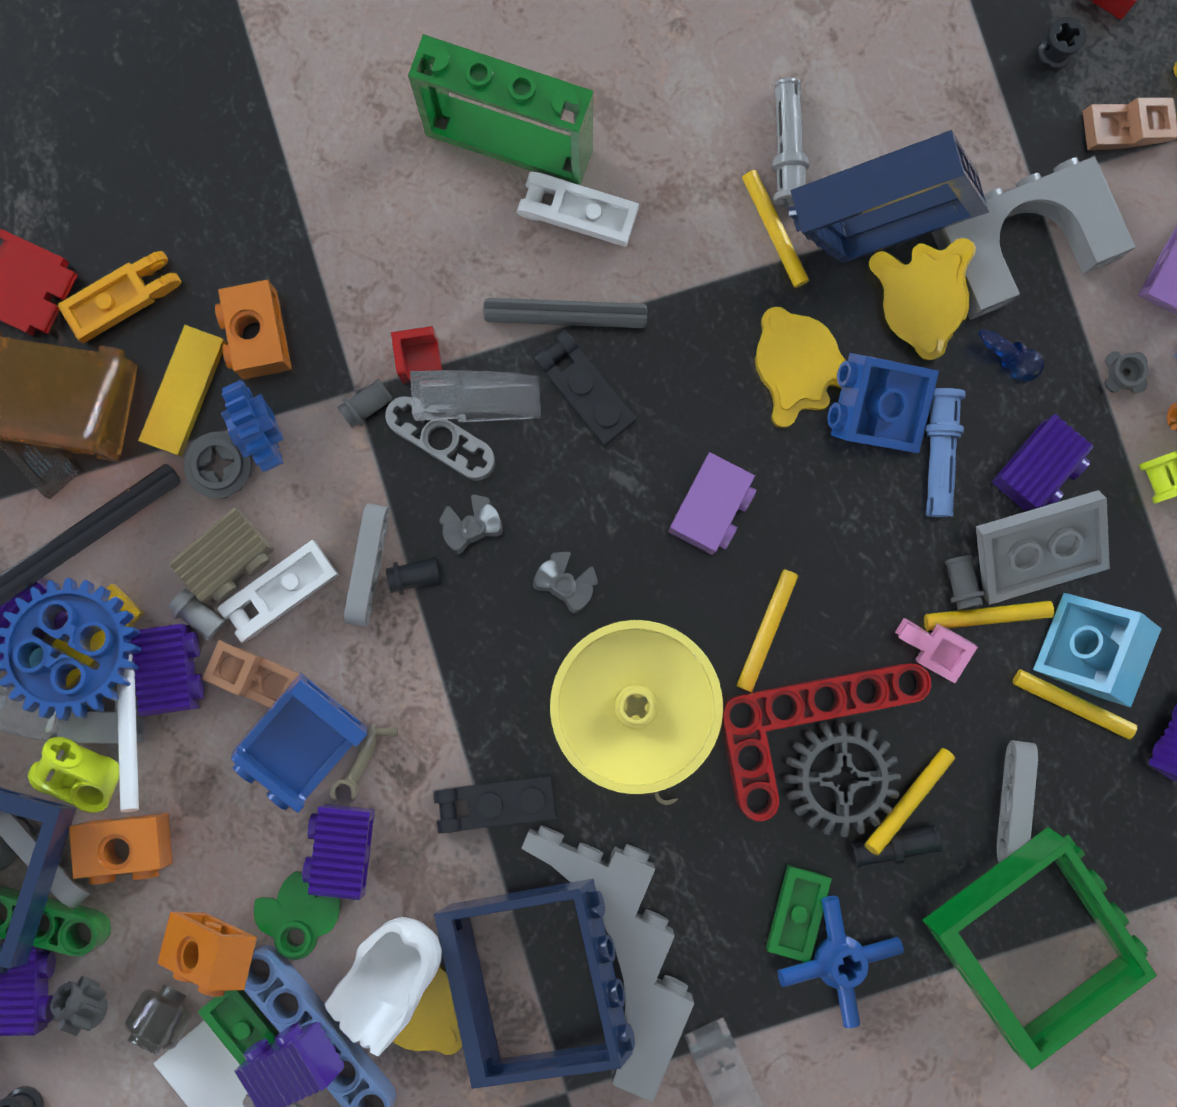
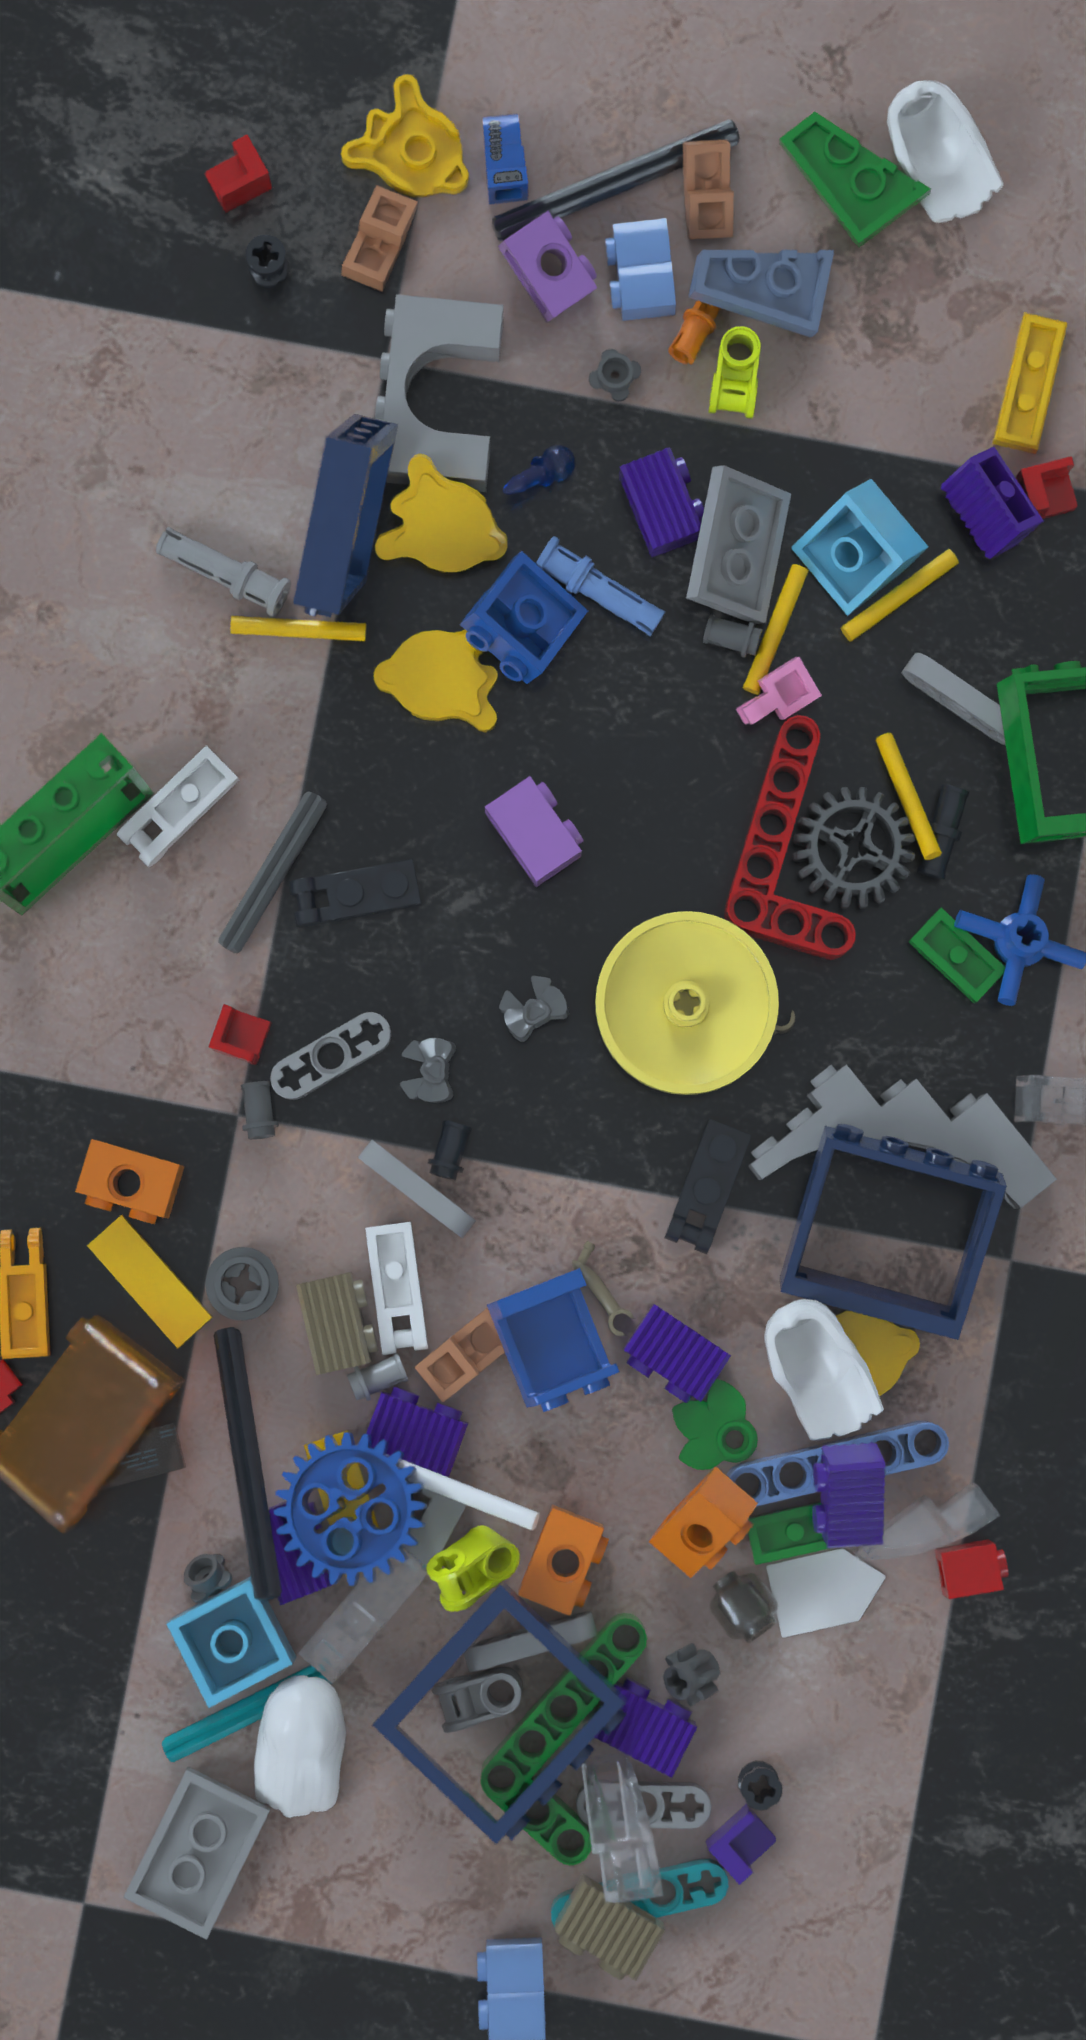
camera: 65 degrees left, 0 degrees up
(252, 426) = (227, 1225): blue gear -> none
(474, 395) = (309, 1000): clear slope -> none
(767, 630) = (680, 843): yellow bar -> none

